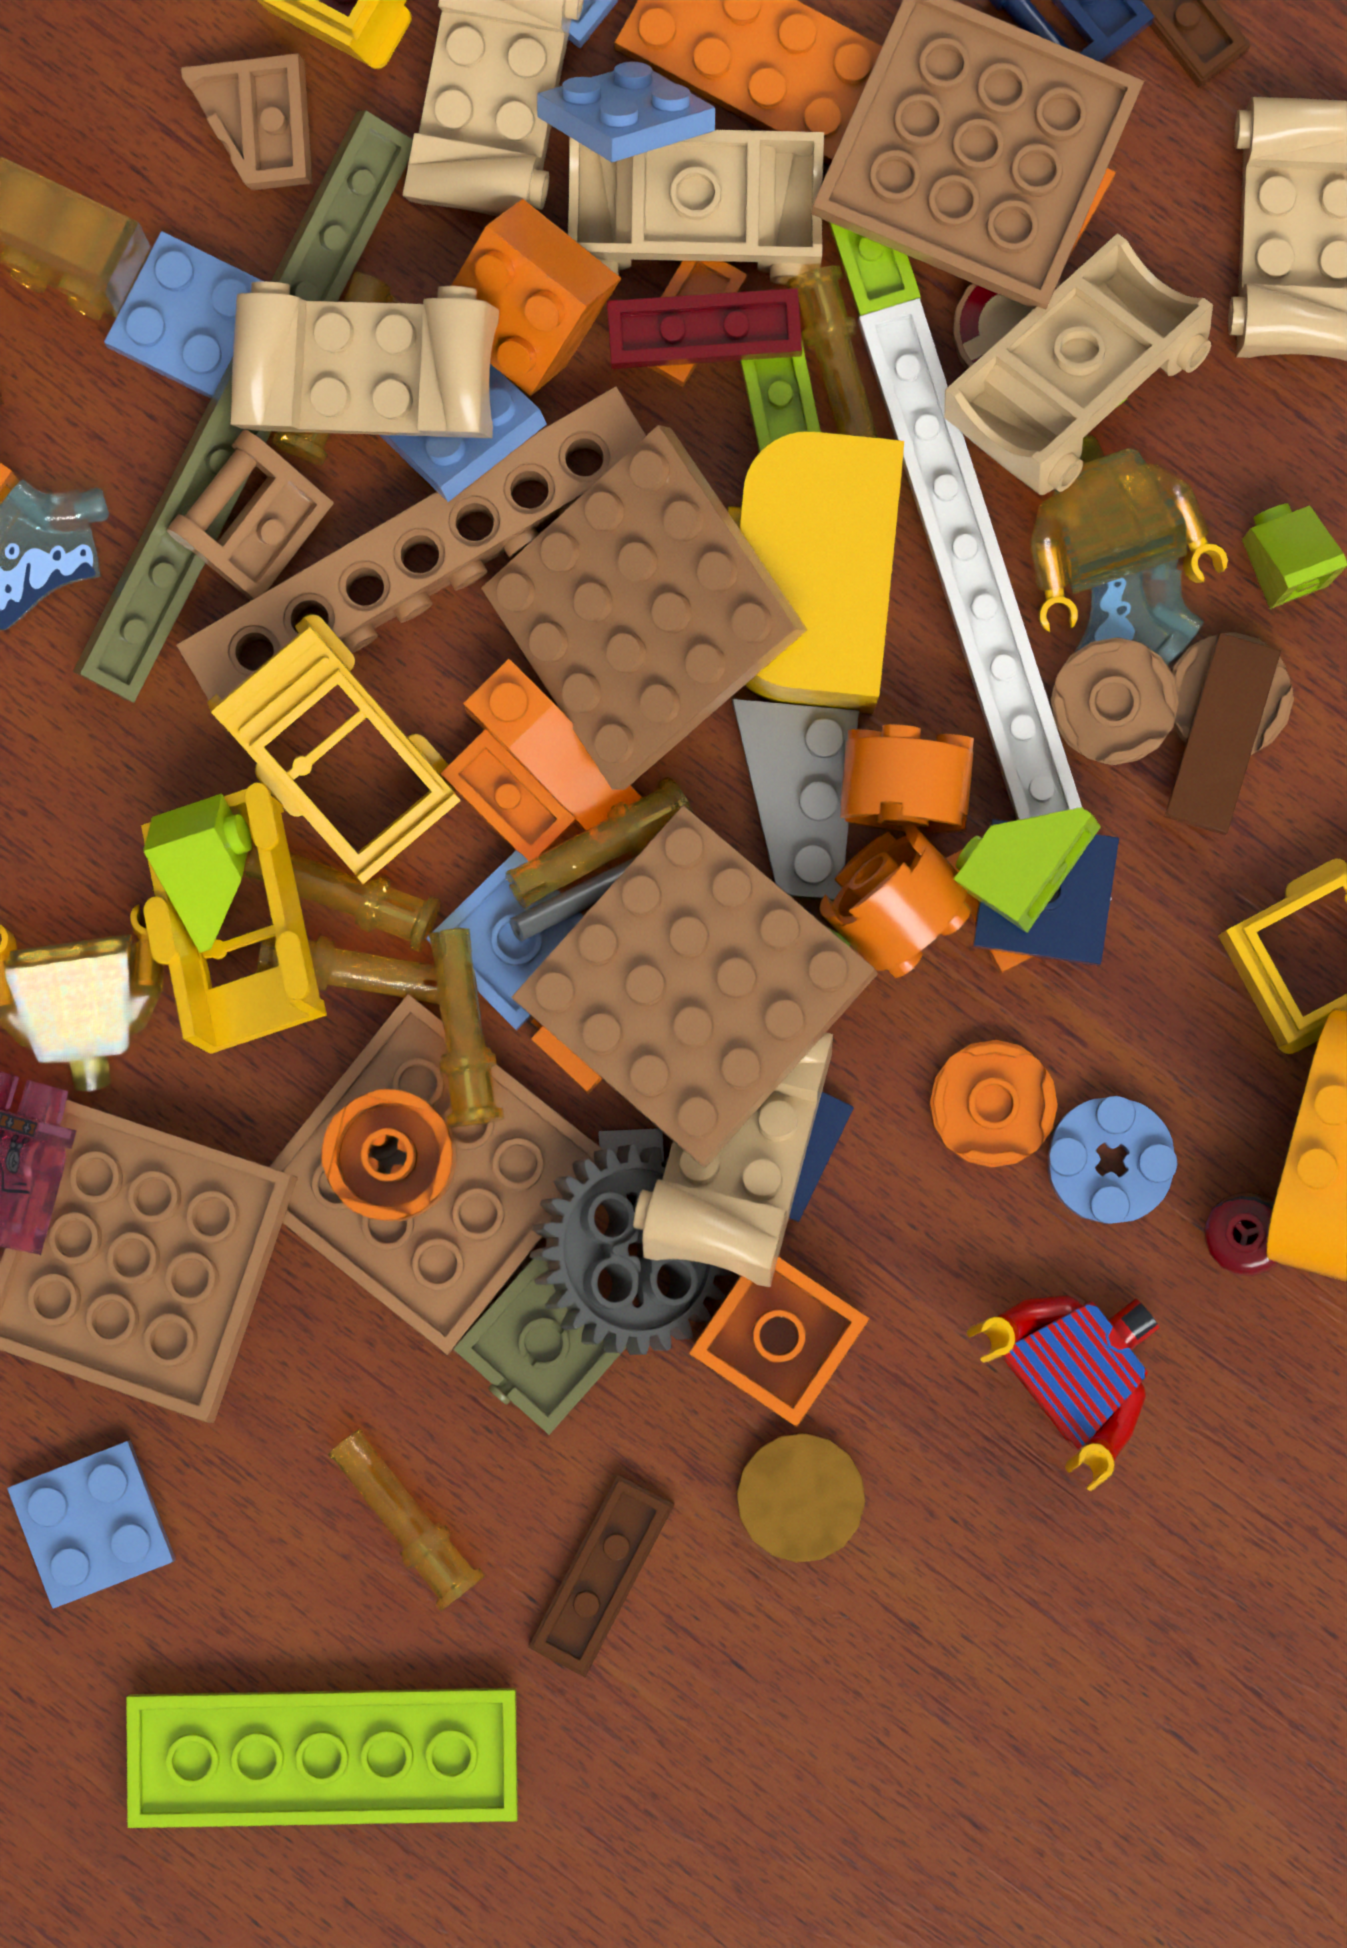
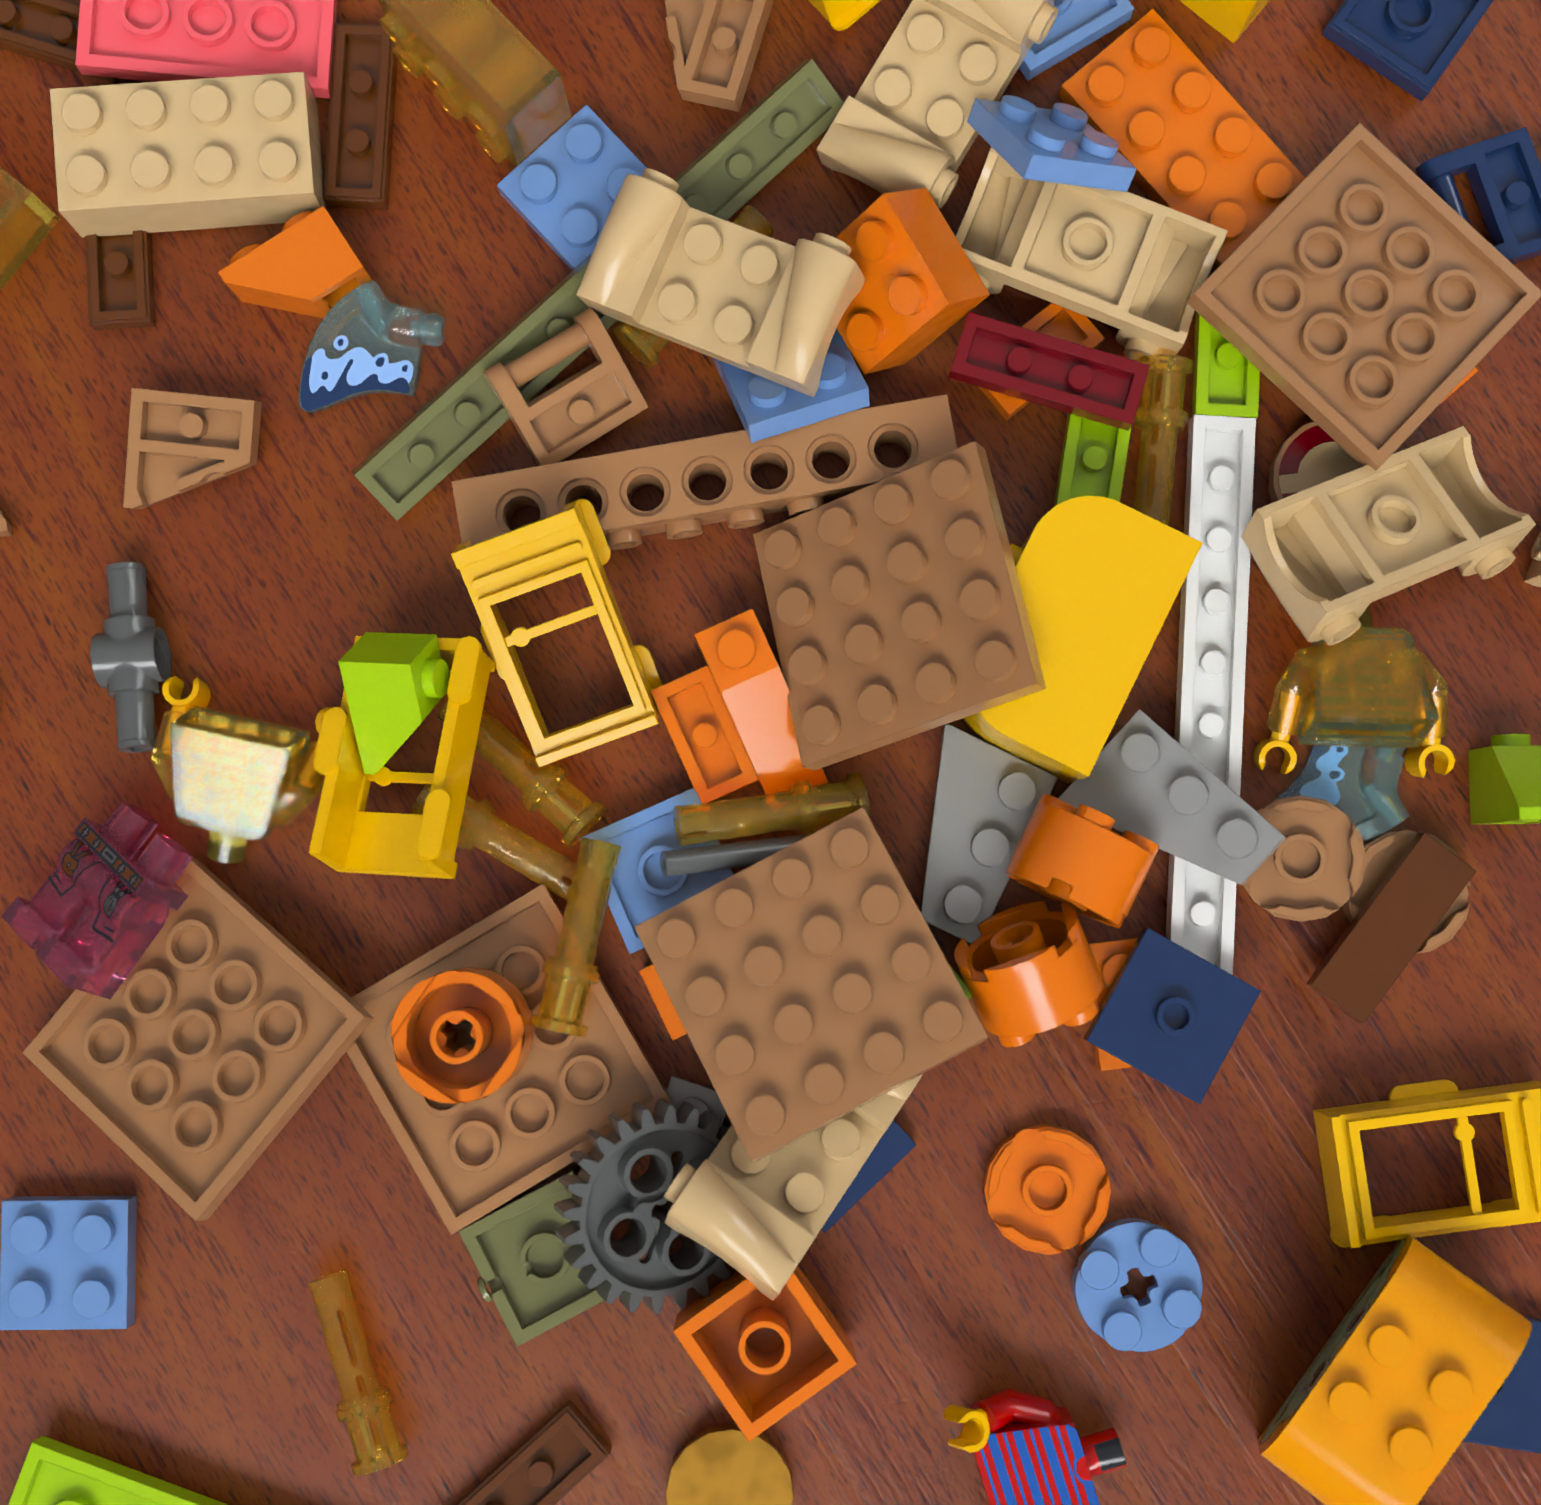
camera: 25 degrees right, 0 degrees up
(974, 691) = (1175, 802): none -> light grey wing
(1024, 862) = (1166, 985): lime slope -> none
(1220, 1240) = (1232, 1390): dark red head -> none

